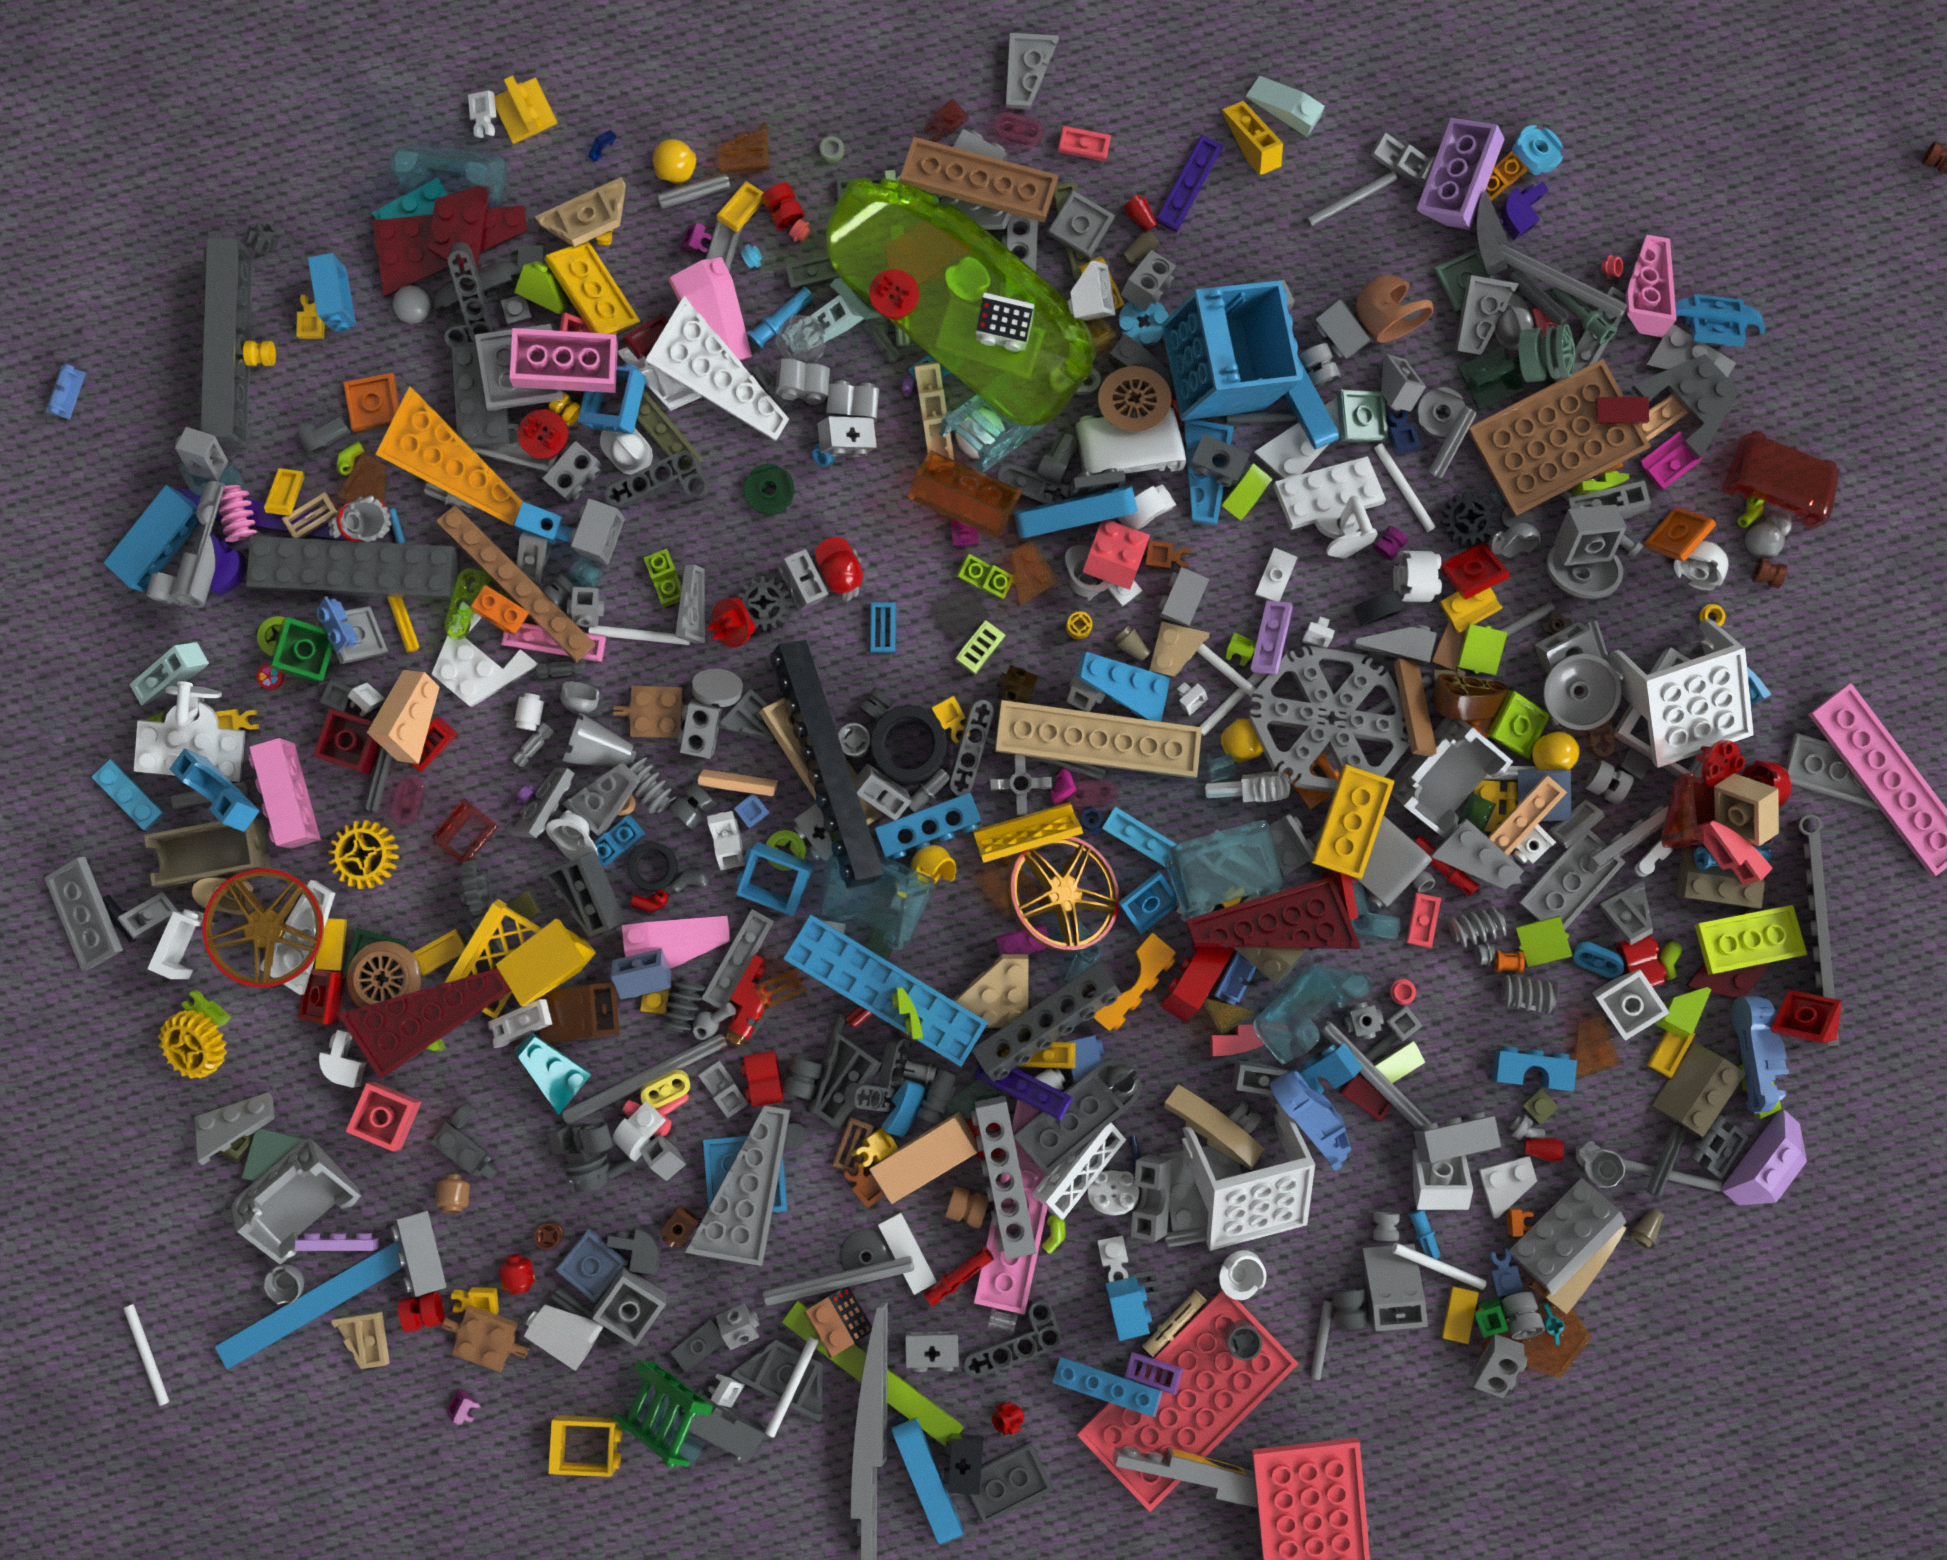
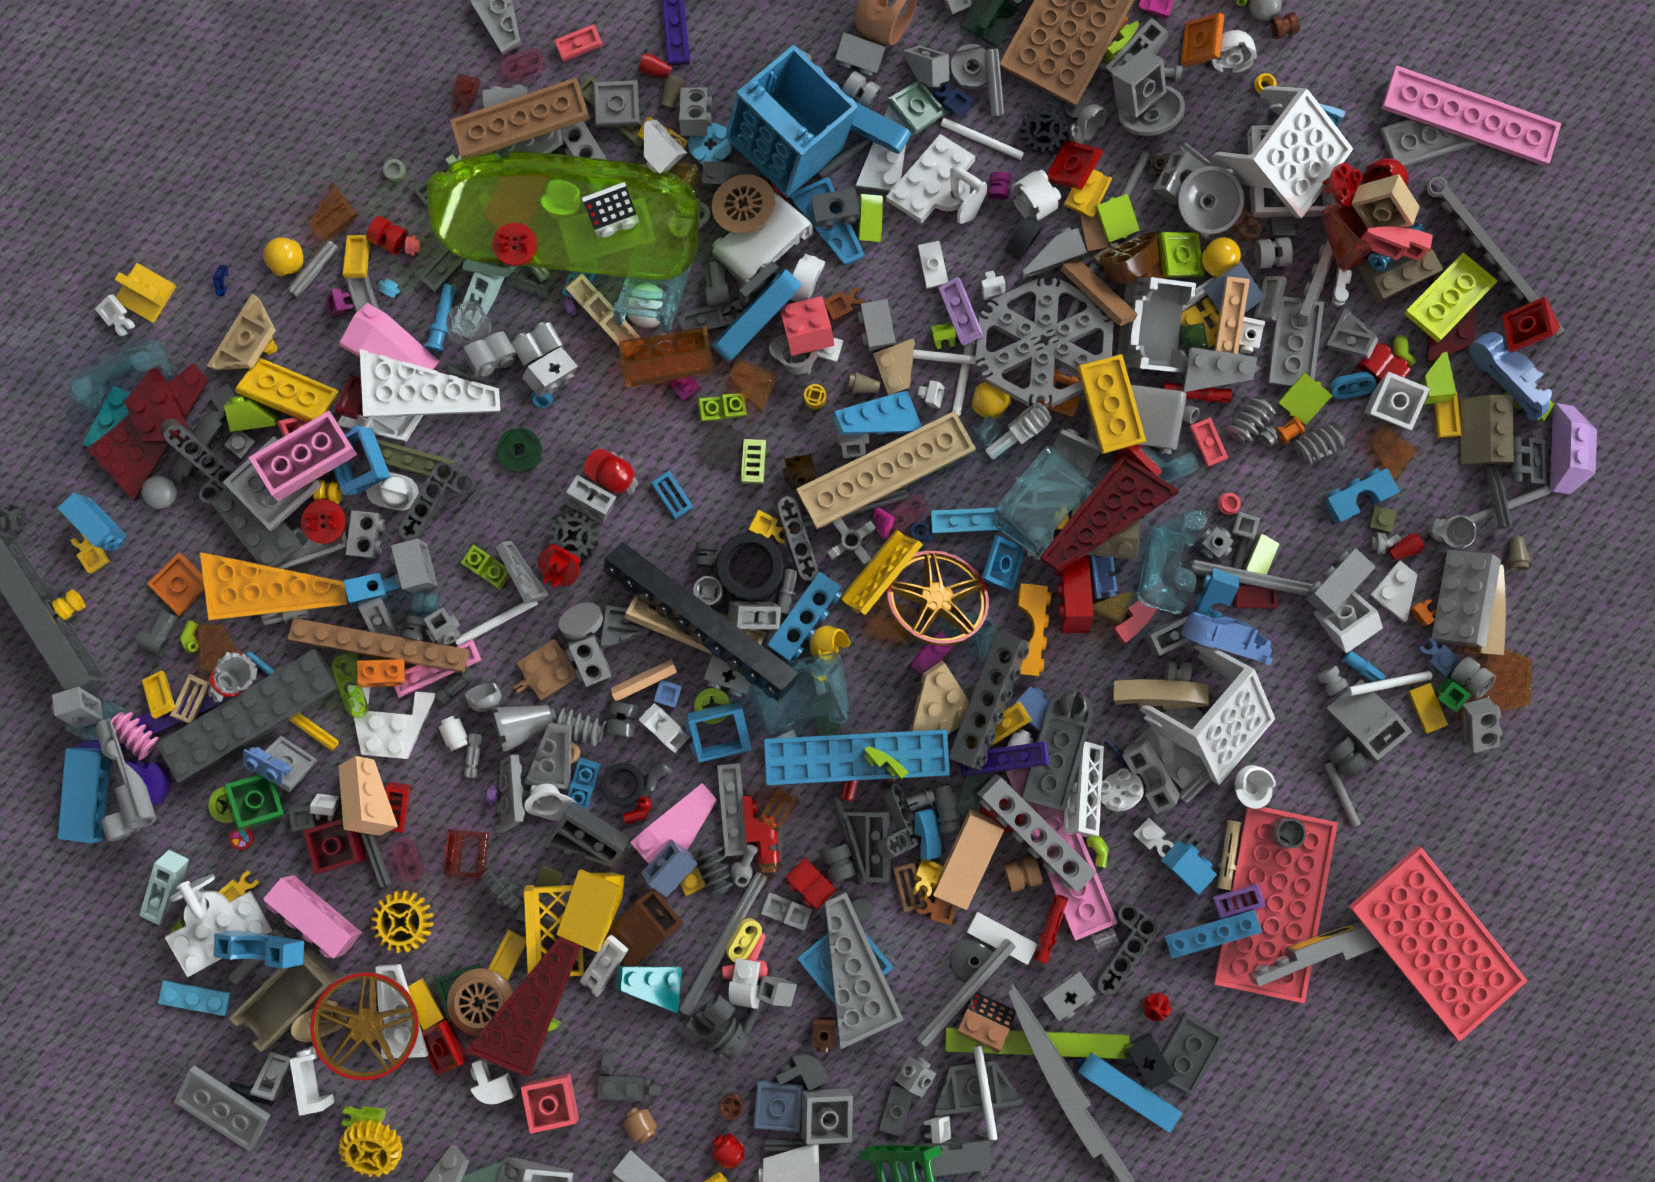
camera: 30 degrees left, 0 degrees up
(1552, 1324) = (1500, 669): teal piece -> none

